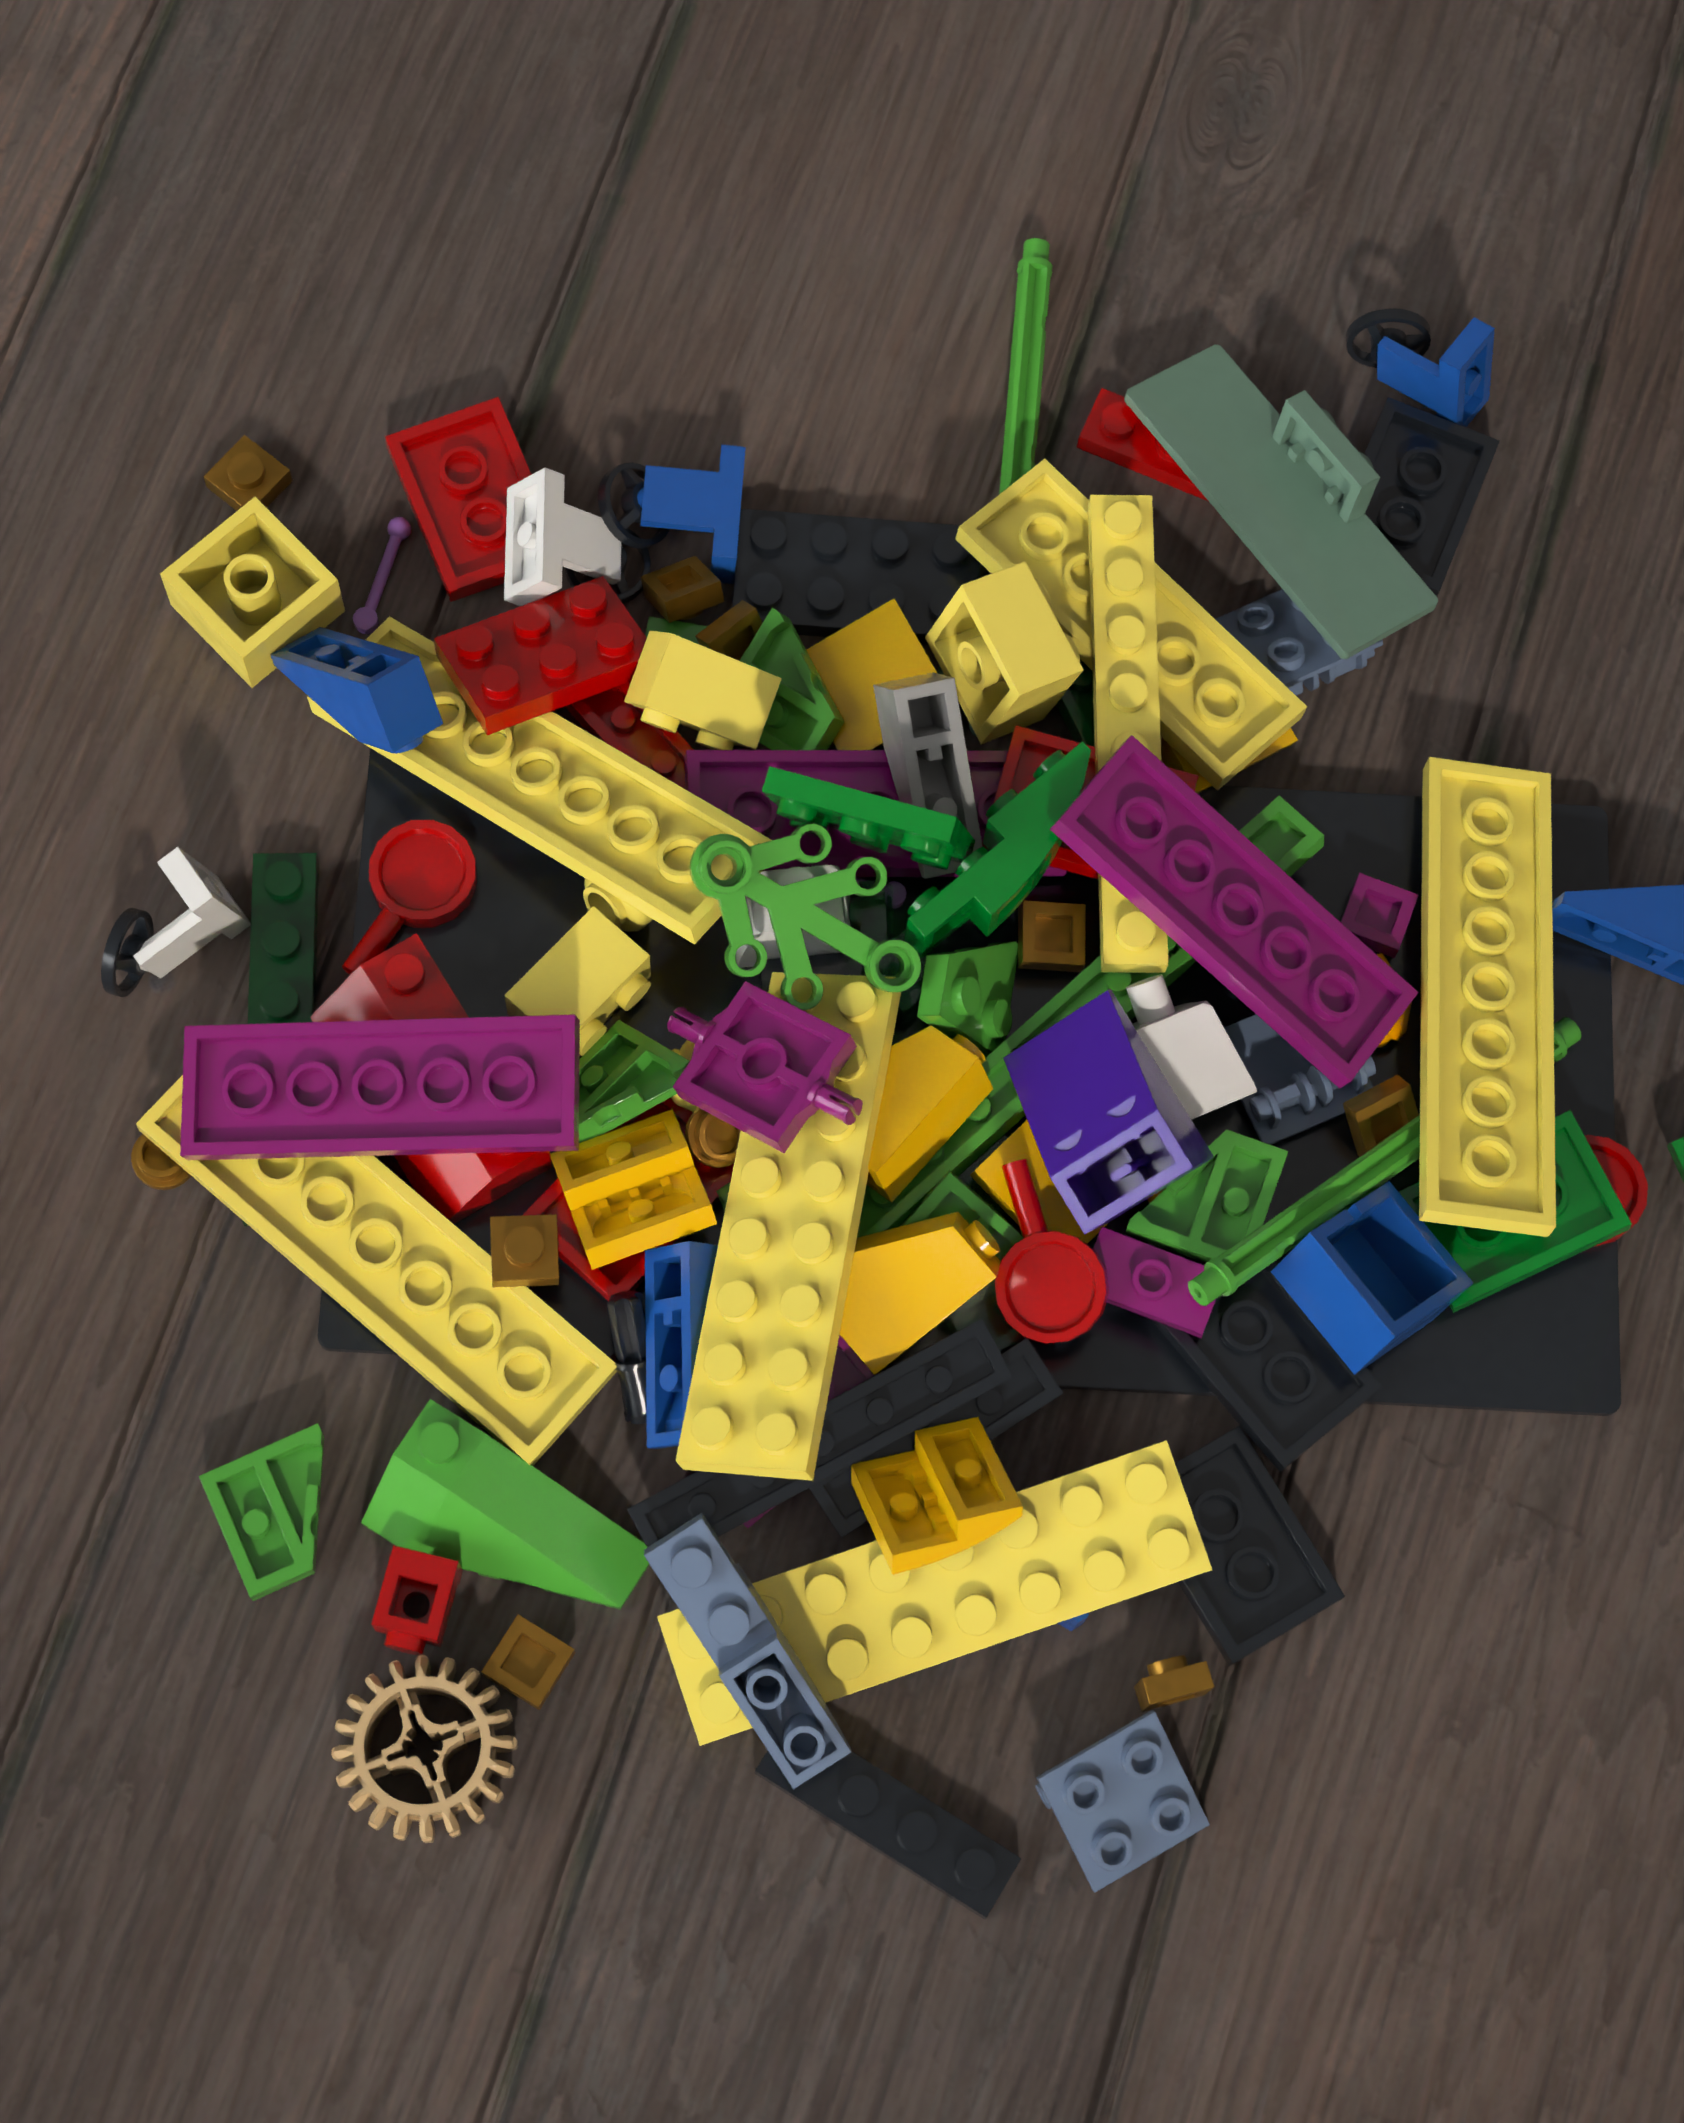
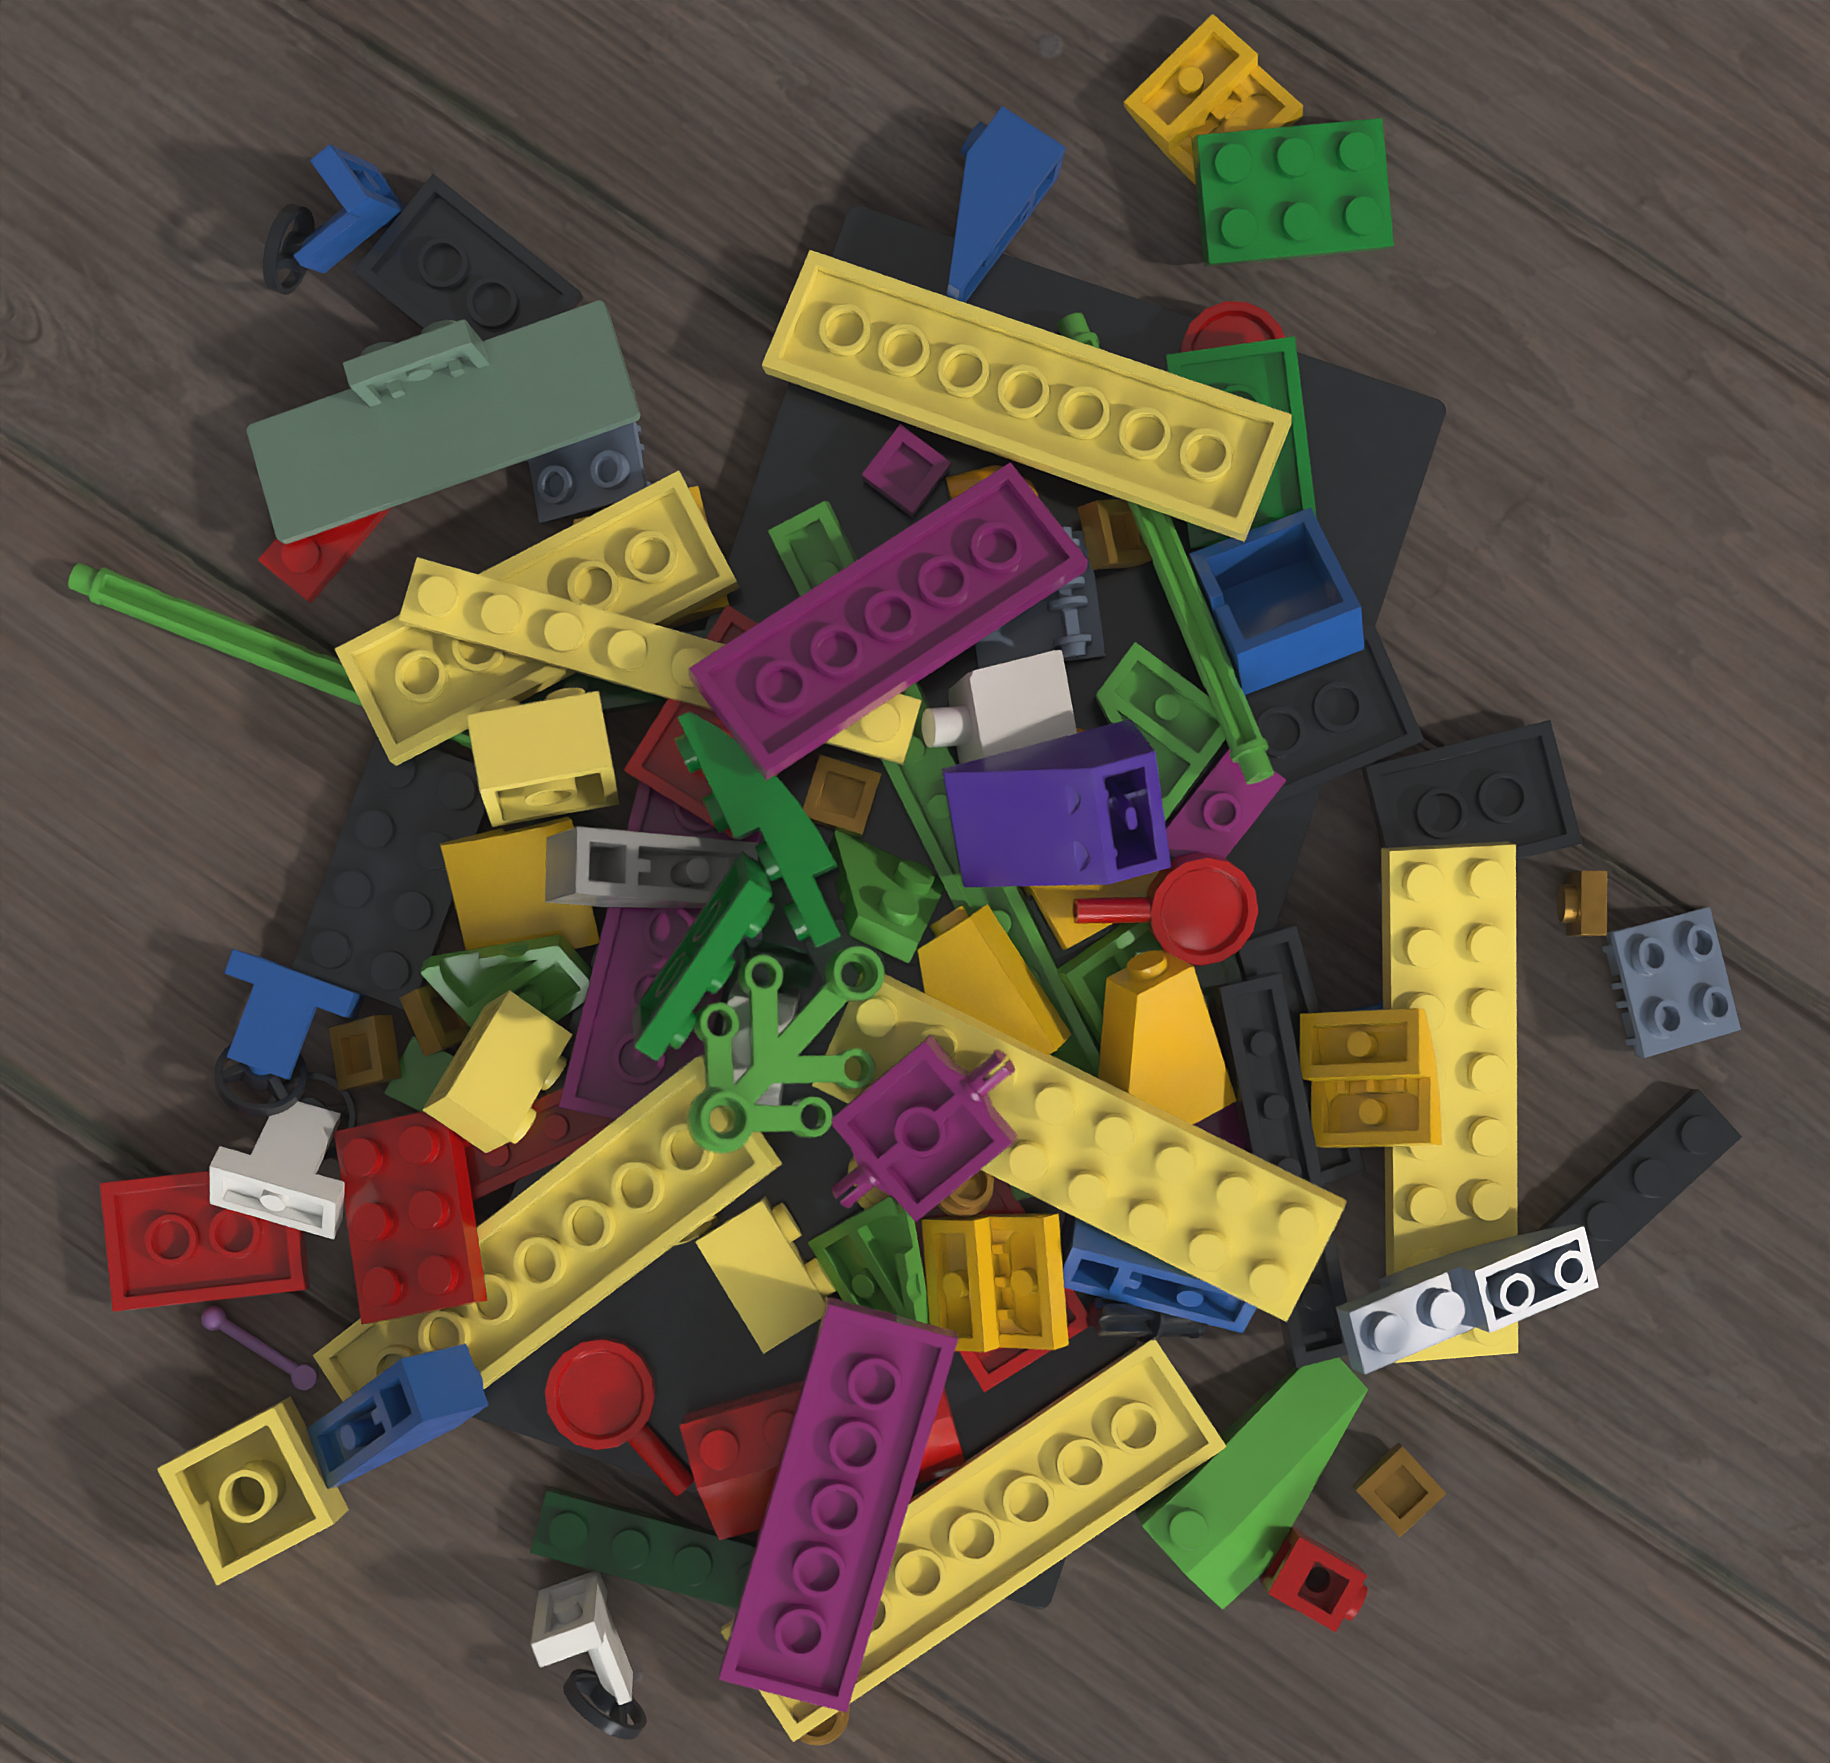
camera: 70 degrees left, 15 degrees up
(247, 473) = (115, 1458): pearl gold plate -> none
(271, 1510) = (1192, 1693): bright green wing -> none
(394, 1760) = (1481, 1606): tan gear -> none
(524, 1250) = (1023, 1400): pearl gold plate -> none

